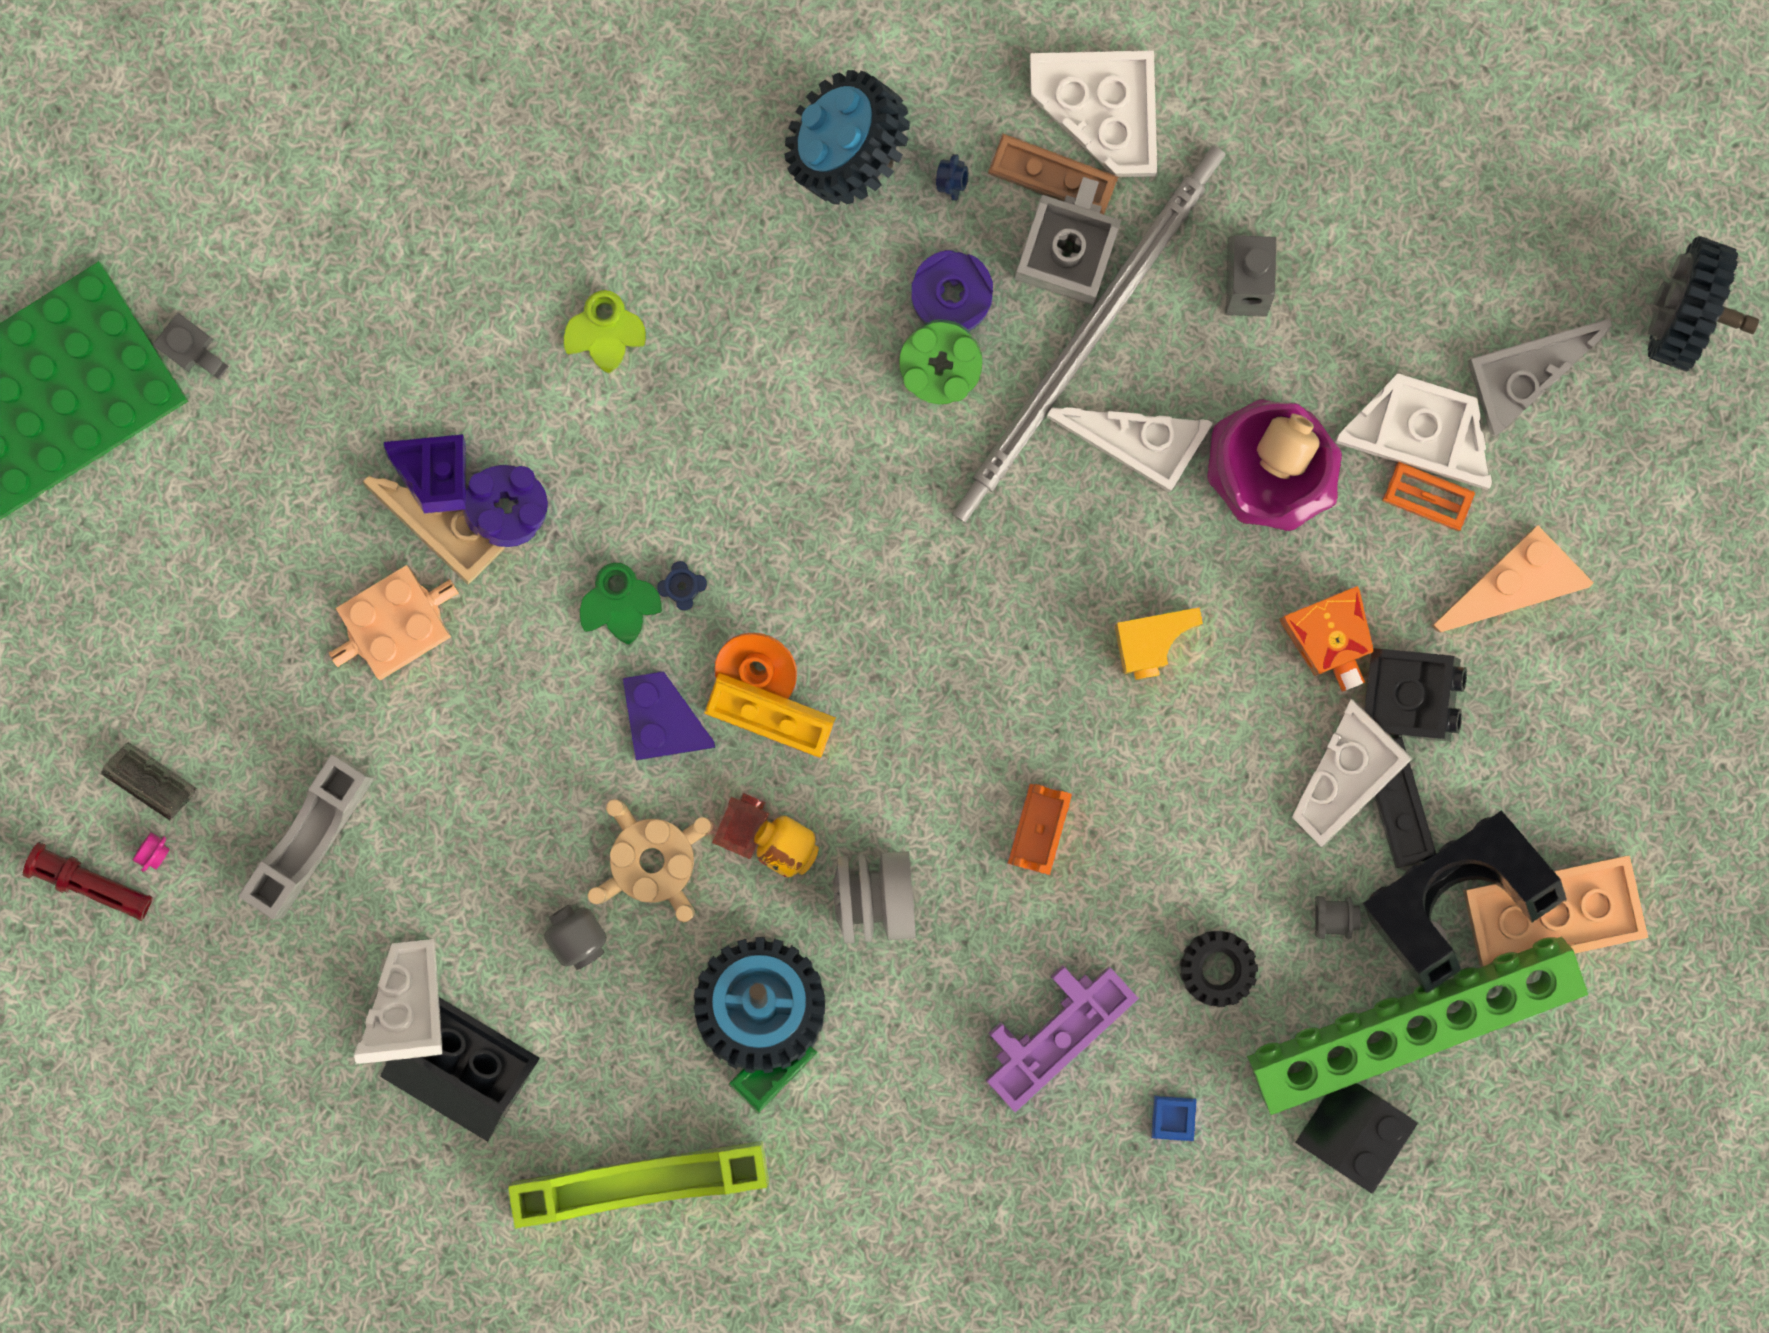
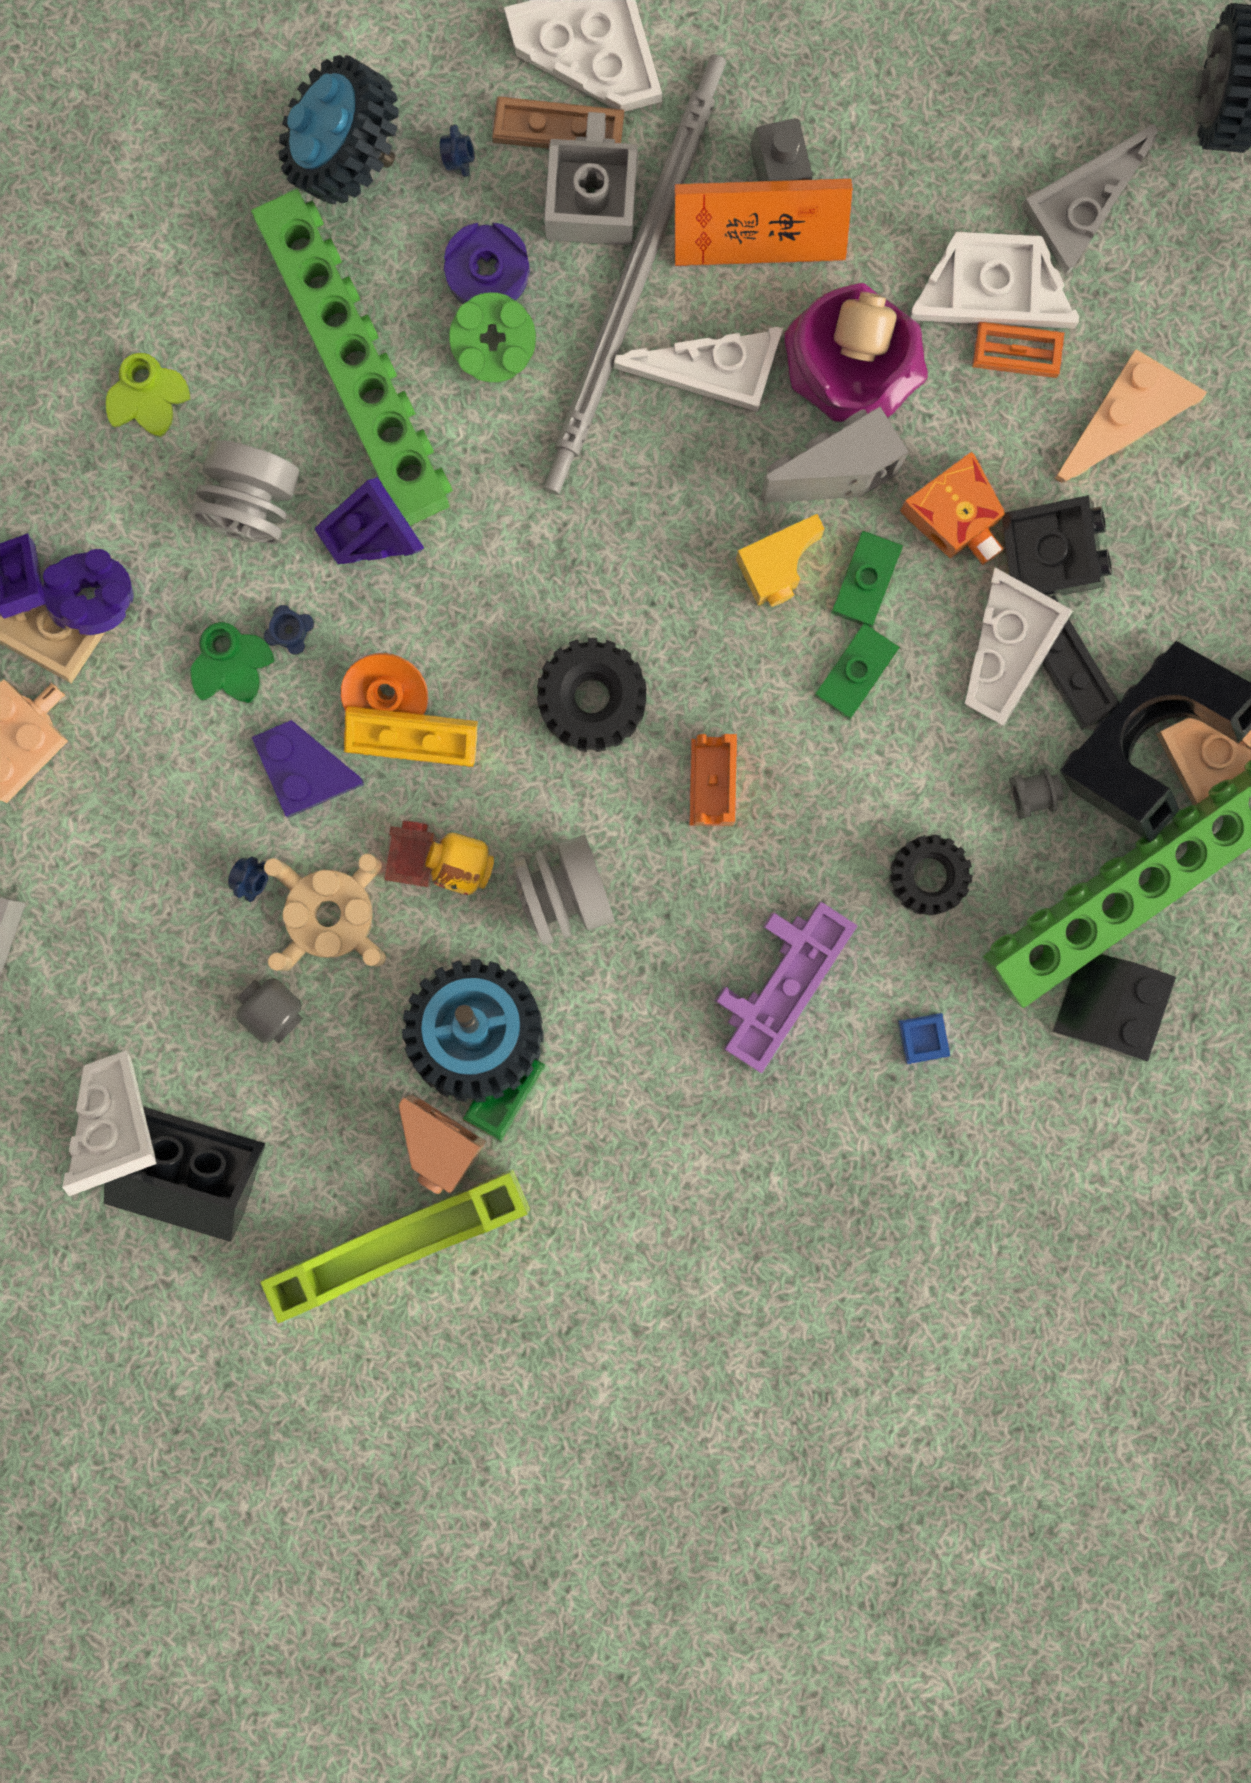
camera: 10 degrees left, 0 degrees up
(587, 809) = (248, 878): none -> dark blue plate
(675, 452) = (246, 486): none -> light grey wheel
(701, 1103) = (437, 1145): none -> nougat slope
(768, 206) = (281, 224): none -> bright green brick
(780, 513) = (367, 527): none -> dark purple wing
(955, 689) = (591, 662): none -> black tyre
(1199, 760) = (857, 671): none -> green plate
(1218, 321) = (762, 221): none -> orange tile
(1231, 676) = (867, 579): none -> green plate
(1240, 568) = (839, 464): none -> light grey slope

